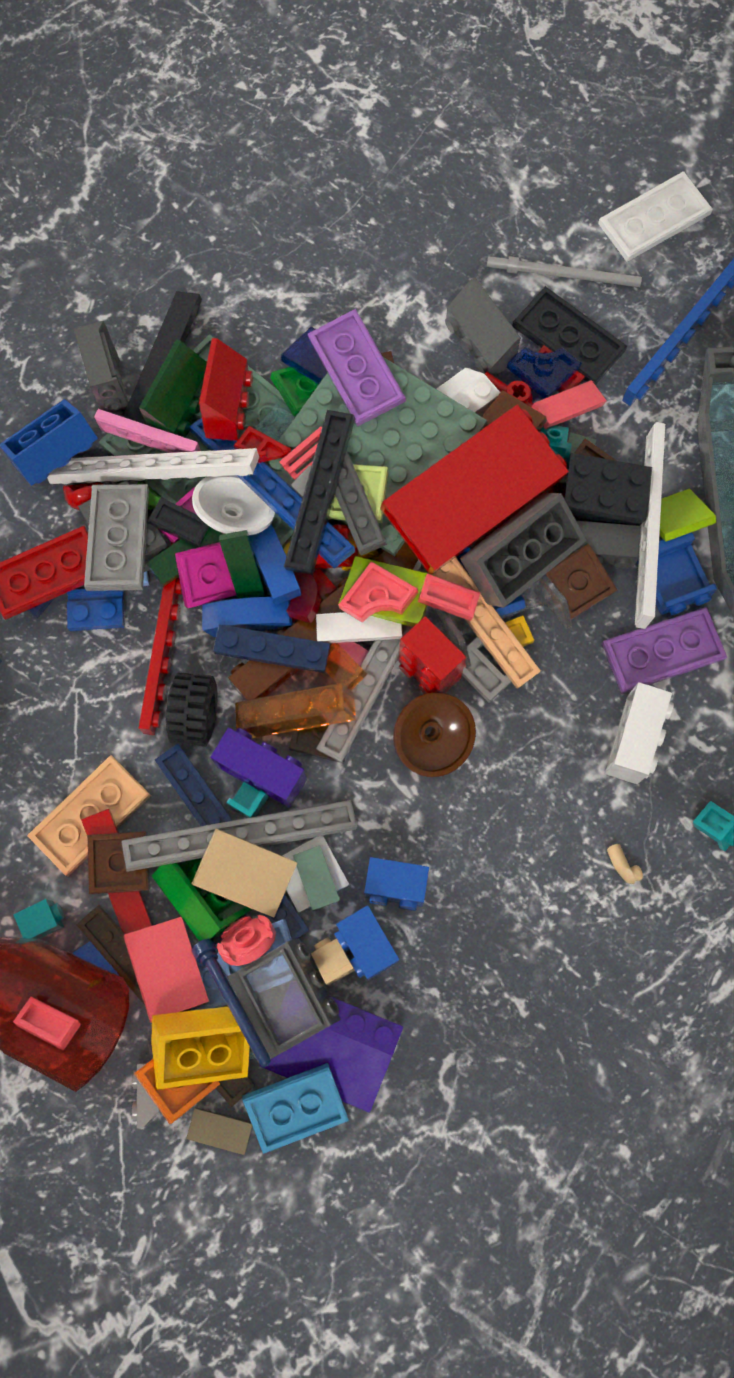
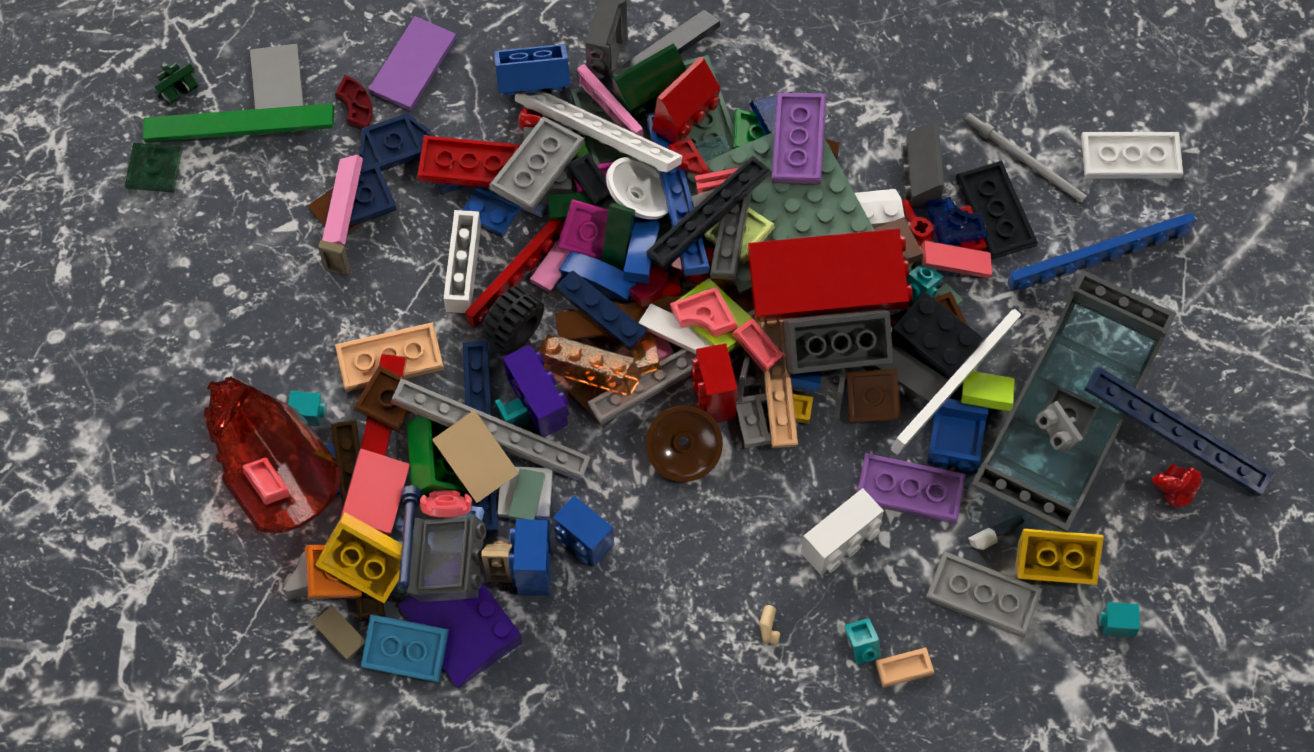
camera: 30 degrees right, 10 degrees down
(102, 677) = (462, 261): none -> white brick
(192, 639) = (548, 274): none -> bright pink tile

